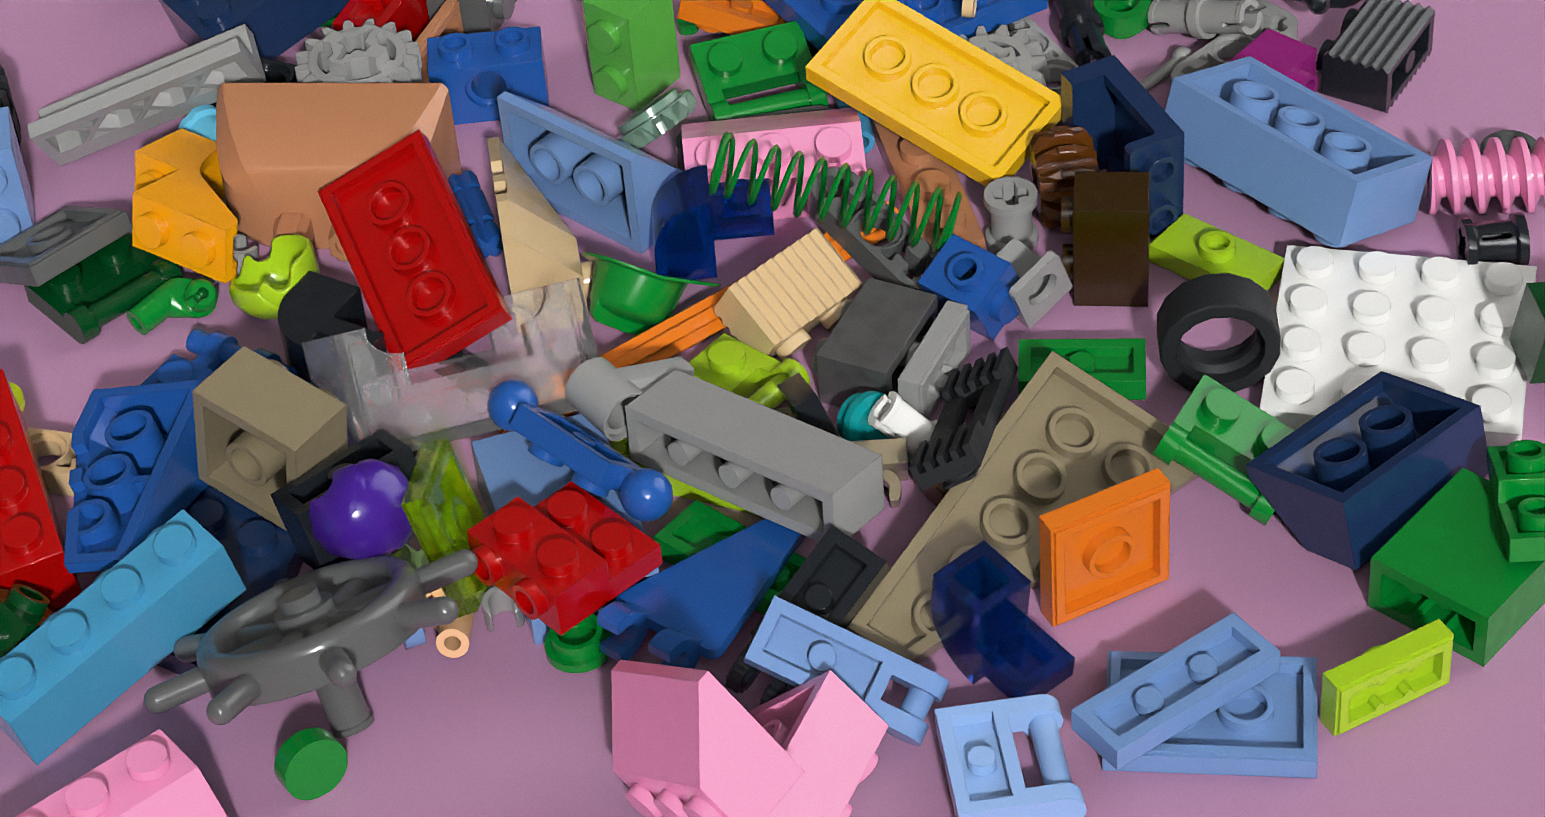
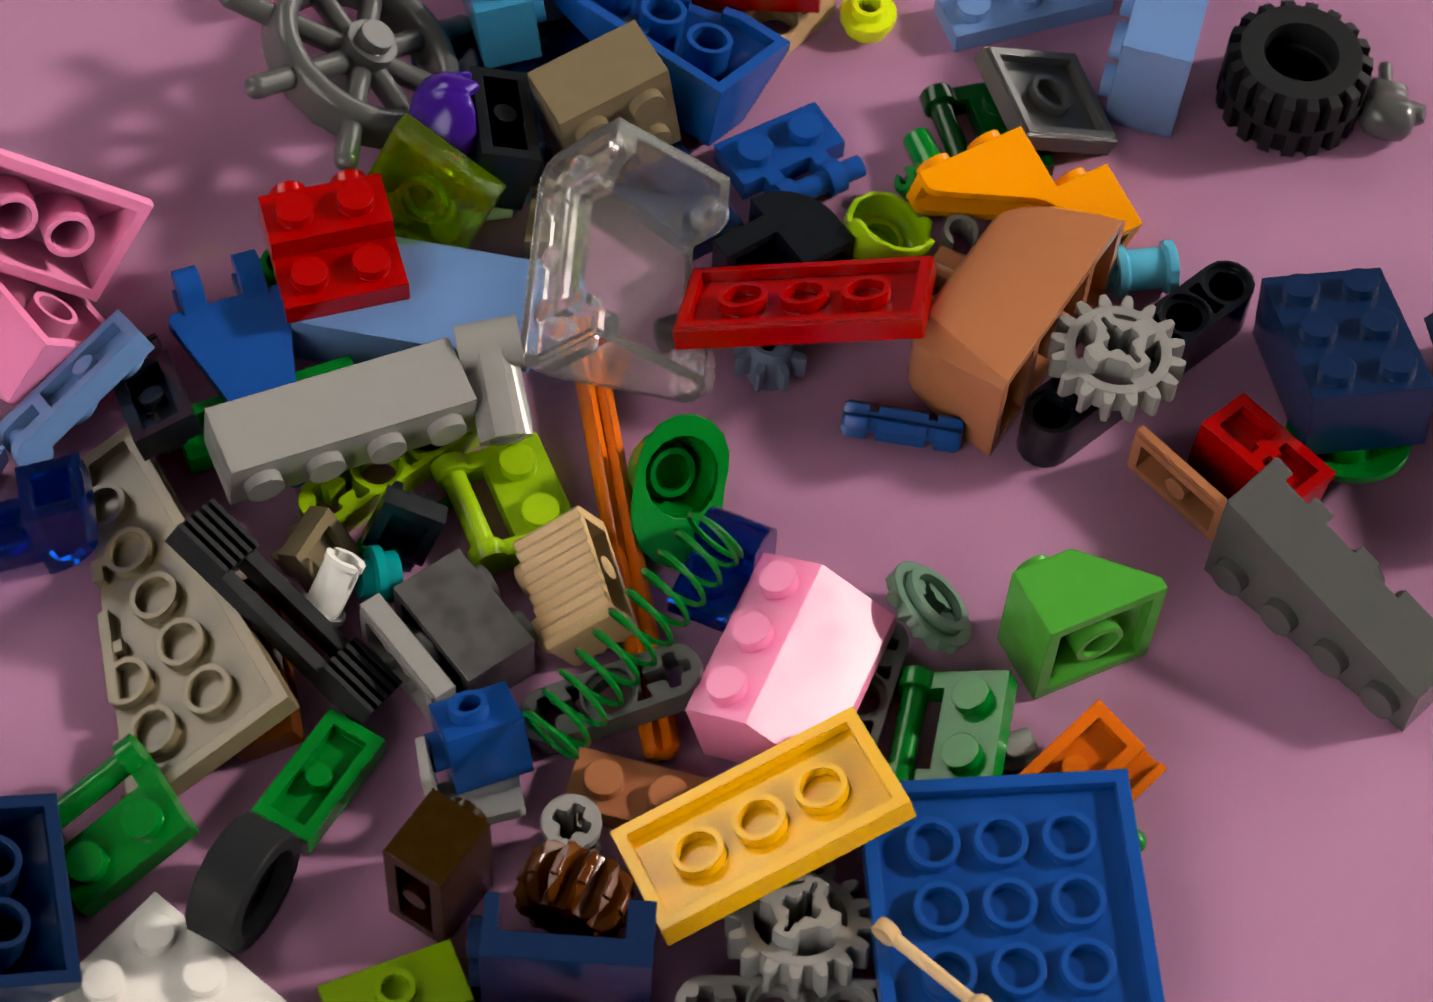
camera: 110 degrees right, 15 degrees up
(146, 96) = (1207, 214): light grey fence -> none
(484, 66) = (1099, 495): blue brick -> none
(534, 237) = (806, 429): tan wedge -> none
(559, 441) = (436, 299): blue plate -> none
(585, 170) = (879, 503): medium blue slope -> none
(1104, 547) = (49, 631): orange plate -> none

